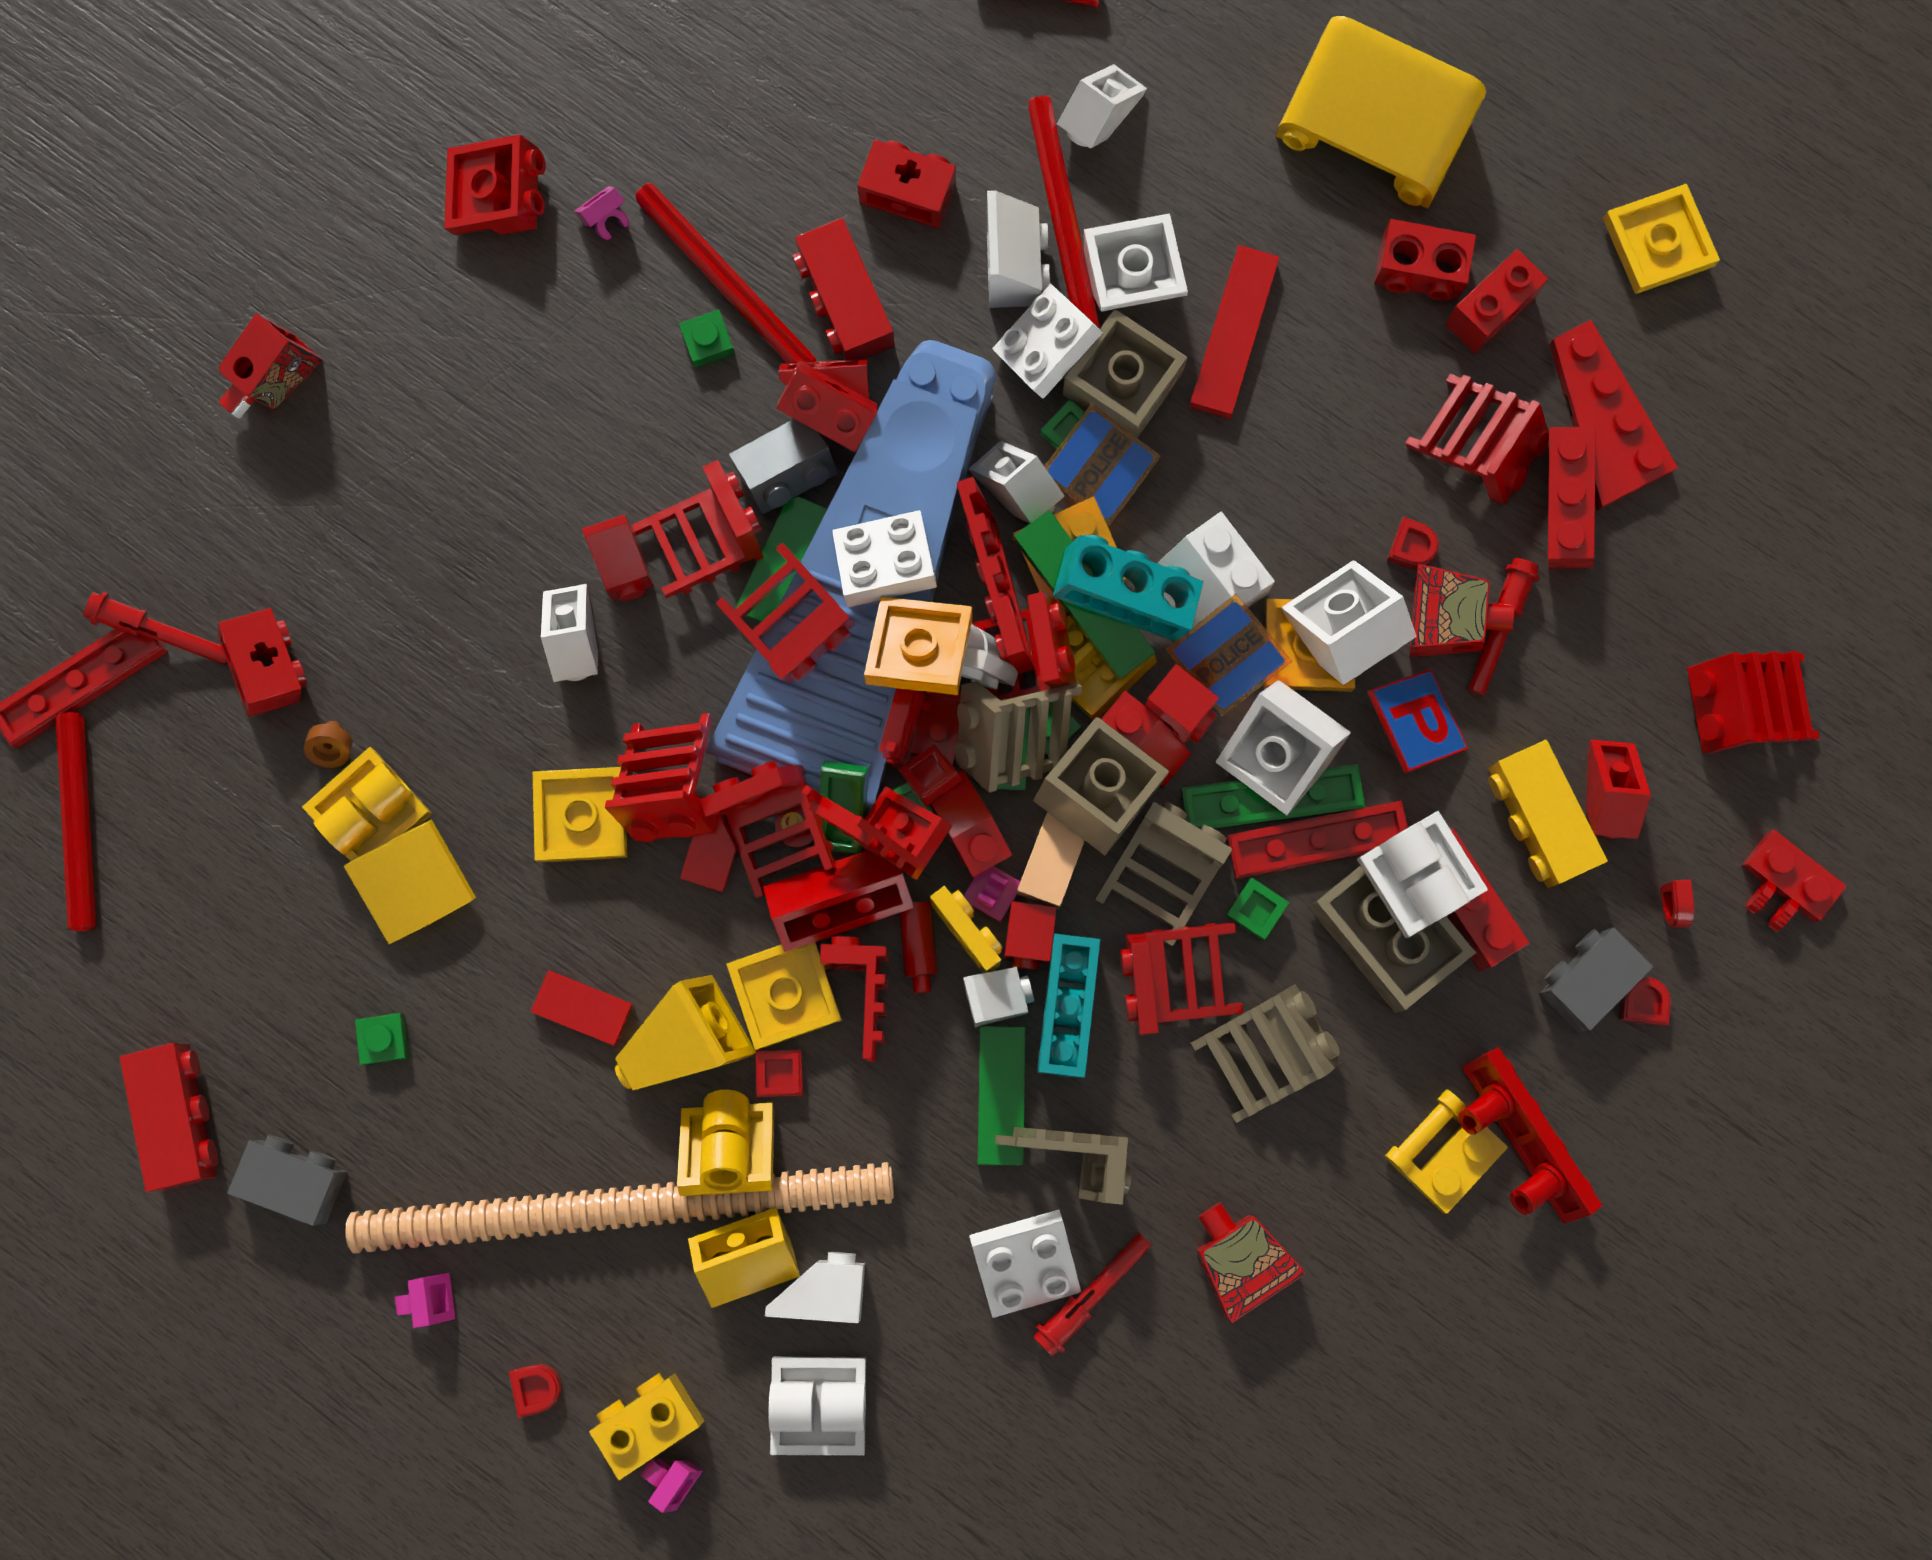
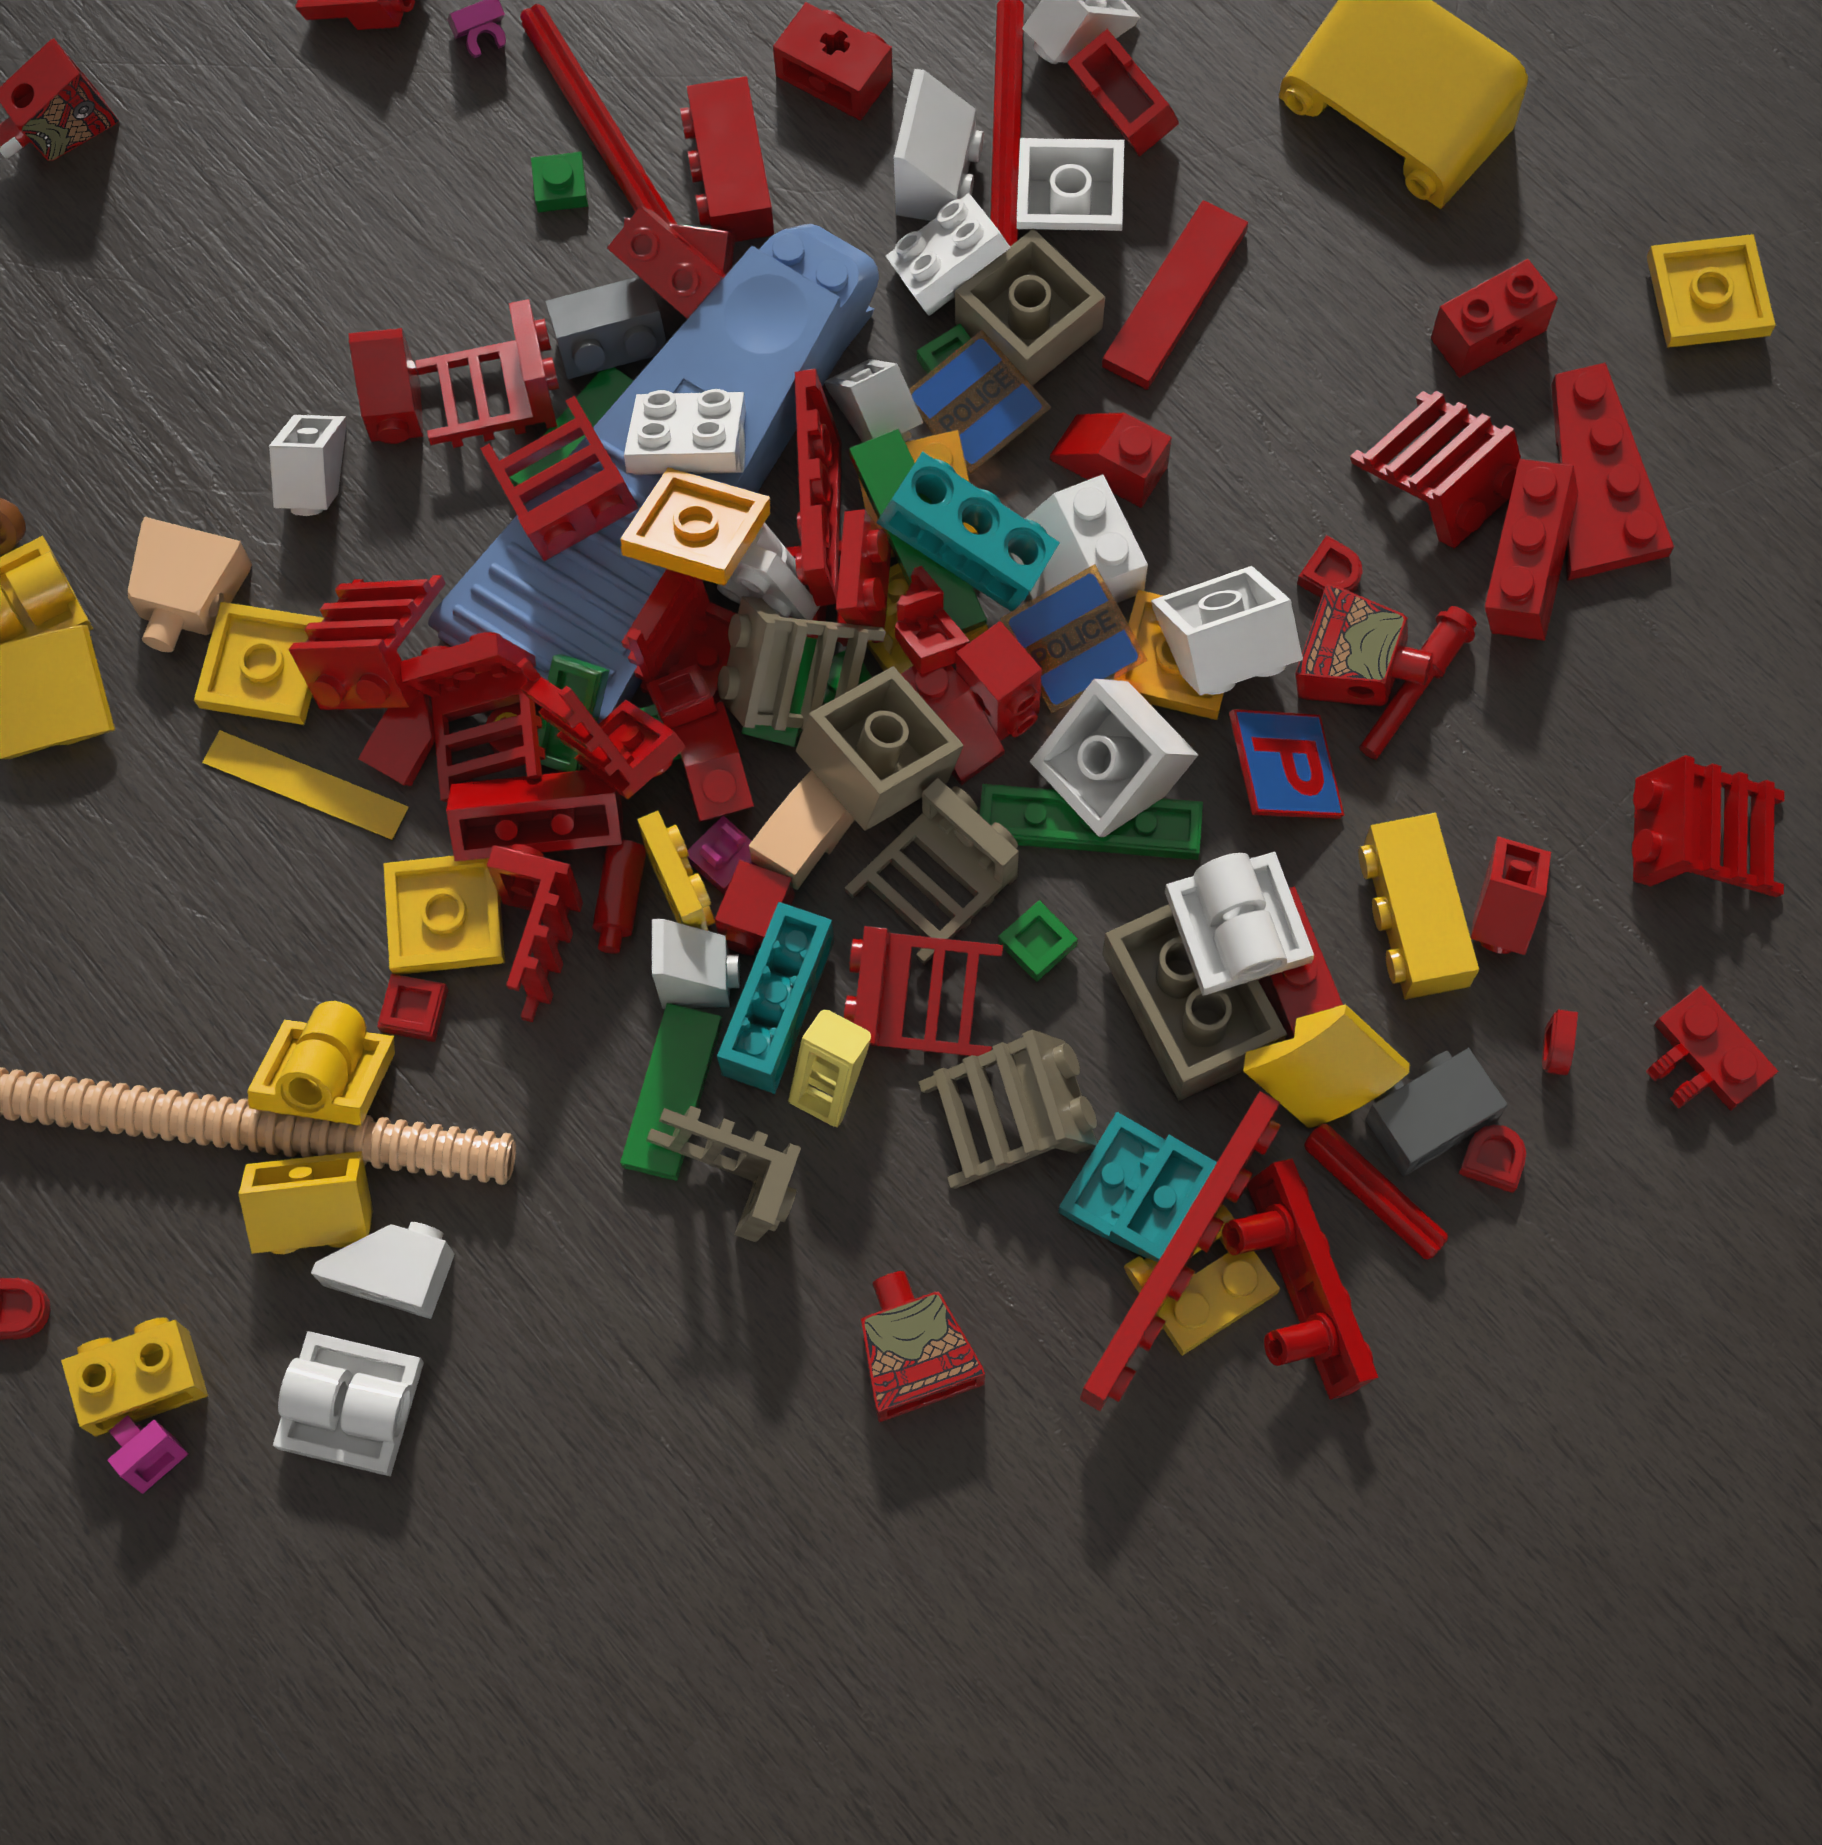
camera: 15 degrees right, 10 degrees down
(495, 759) = (182, 579): none -> light nougat torso
(582, 1008) = (201, 881): red tile -> none
(641, 906) = (305, 784): none -> yellow sticker
(683, 1036) = (308, 933): yellow slope -> none
(1025, 1263) = (645, 1287): white plate -> none
(1072, 1314) = (694, 1364): red pin -> none
(1114, 677) = (924, 627): none -> red slope
(1126, 1055) = (830, 1061): none -> light yellow slope
(1154, 165) = (1123, 92): none -> red brick
(1218, 483) = (1118, 447): none -> red slope
(1314, 840) = (1104, 878): red tile -> none
(1382, 1093) = (1136, 1187): none -> teal slope
(1424, 248) = (1423, 246): red brick -> none
(1439, 1124) = (1171, 1273): none -> red plate
(1514, 971) = (1327, 1066): none -> yellow slope
(1562, 1051) = (1376, 1191): none -> red axle

